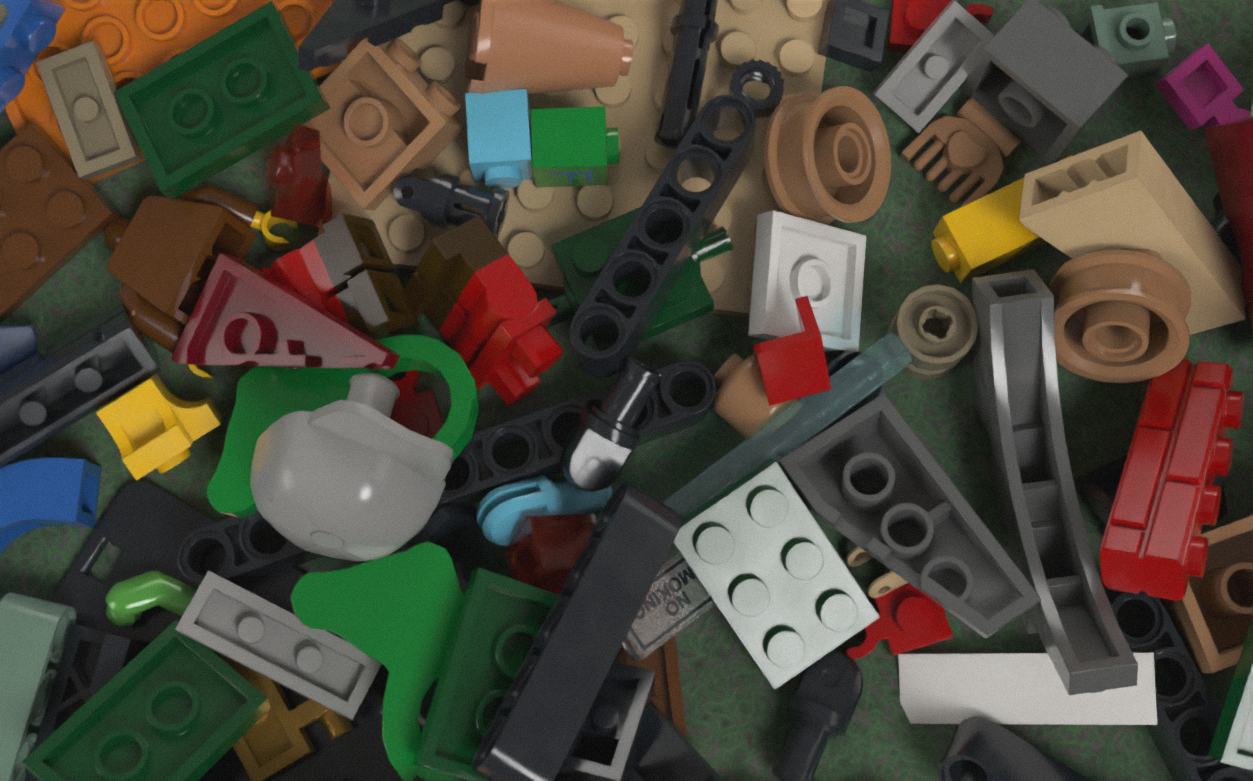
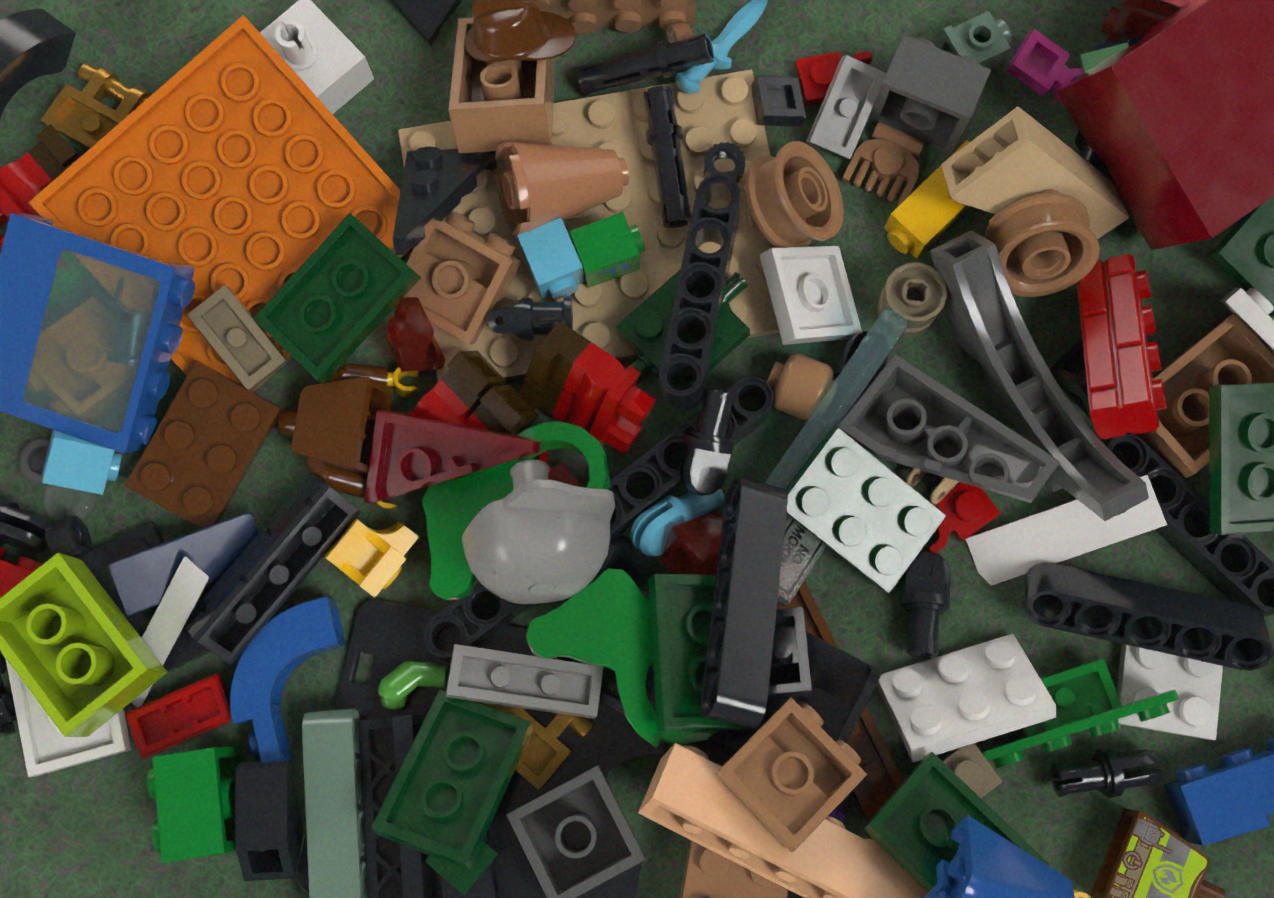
camera: 20 degrees left, 0 degrees up
(794, 363) = (826, 352): red panel -> none

